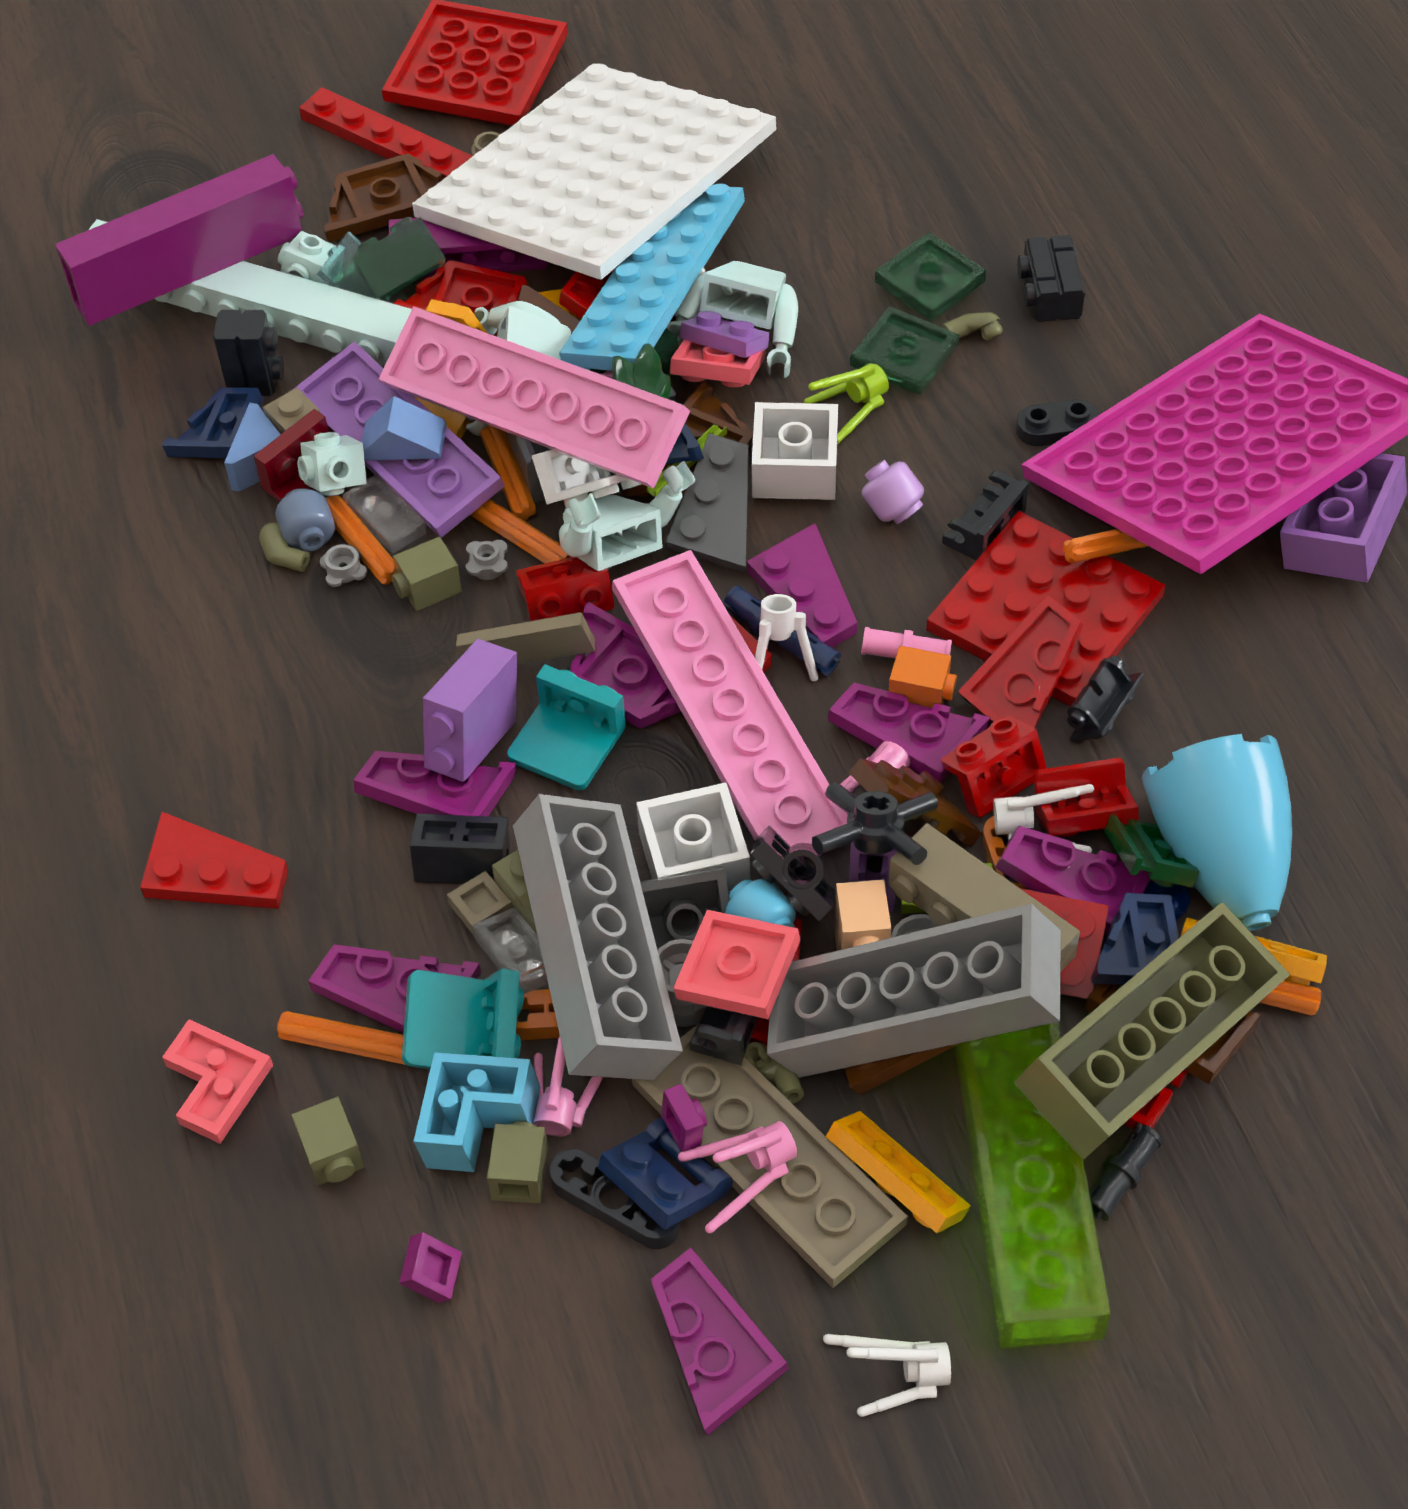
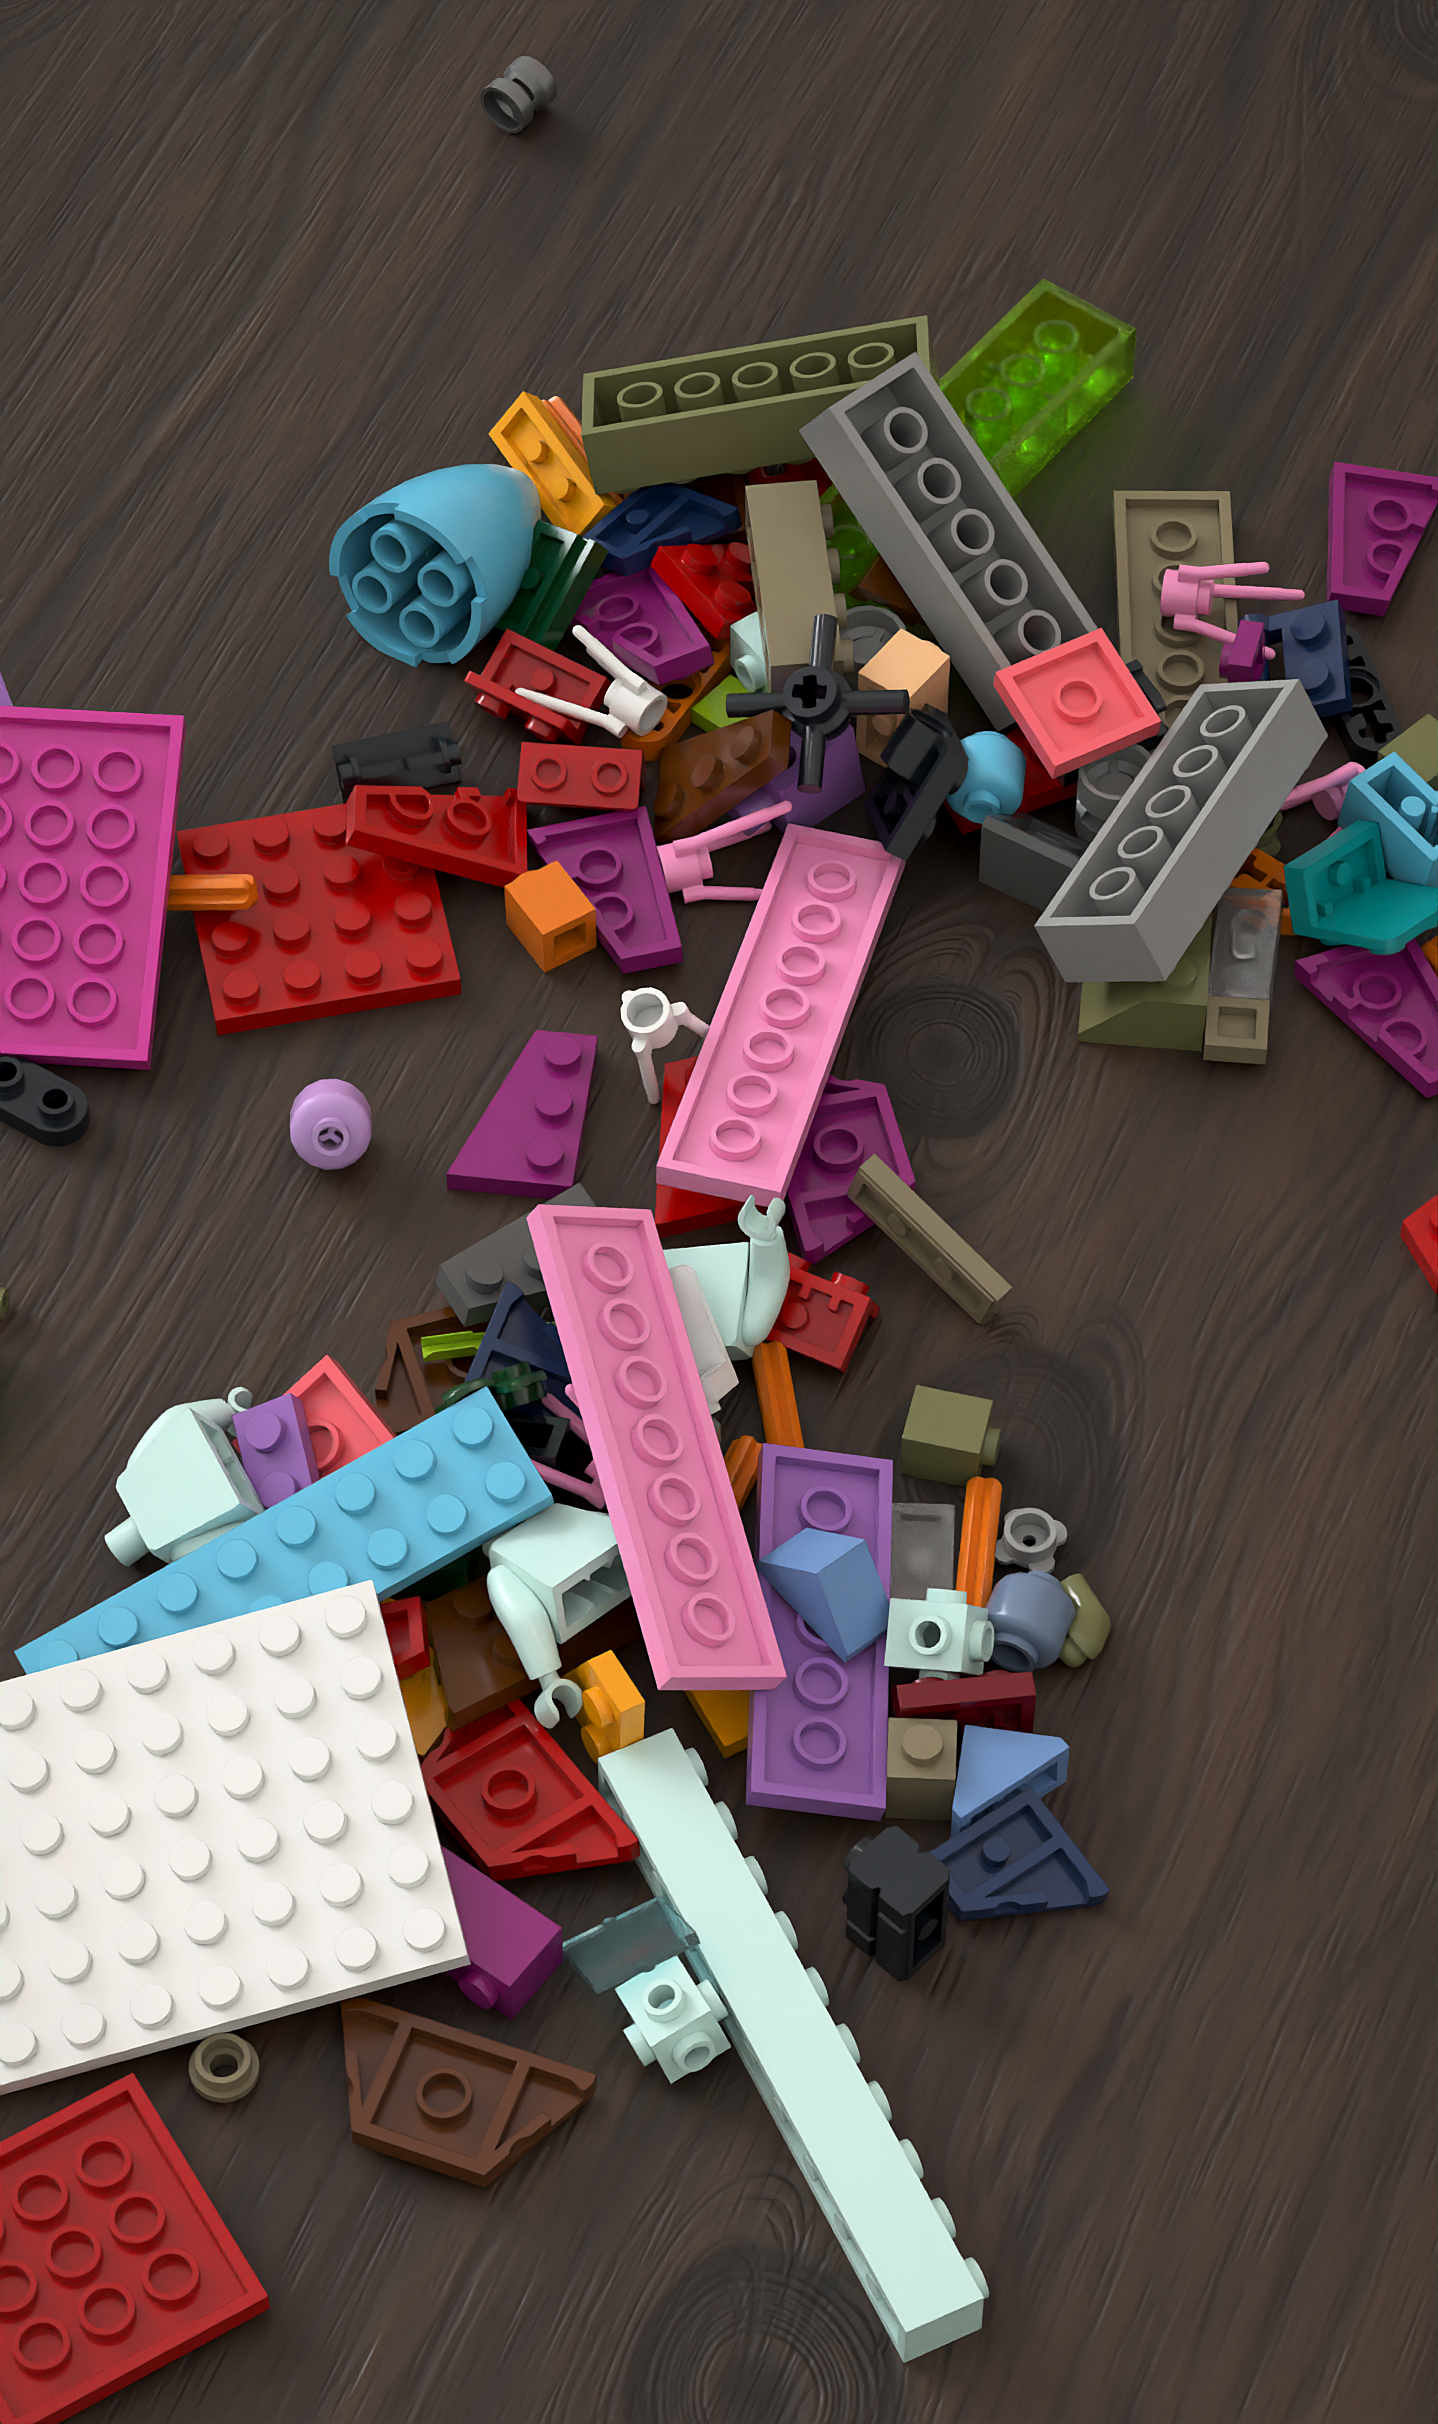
camera: 140 degrees left, 0 degrees up
(181, 239) = (850, 2087): magenta brick -> none
(378, 132) = (330, 2210): red plate -> none
(398, 258) = (572, 1878): clear green brick -> none
(406, 784) = (1167, 1182): magenta wing -> none
(457, 847) = (1209, 1083): black hinge -> none
(470, 709) = (1078, 1176): medium lavender brick -> none
(486, 559) = (848, 1433): light grey plate -> none
(569, 728) = (974, 1134): teal bracket -> none
(693, 834) = (971, 906): white brick -> none
(748, 608) = (632, 1133): dark blue pin -> none
(794, 451) = (375, 1247): white brick -> none
(862, 386) = (188, 1295): lime plant -> none
(887, 643) = (517, 967): bright pink pin -> none
(898, 1172) = (1082, 527): light orange plate -> none
(905, 349) = (84, 1311): clear green plate -> none
(922, 1362) = (1217, 396): white plant -> none
(987, 515) = (256, 1038): black hinge -> none

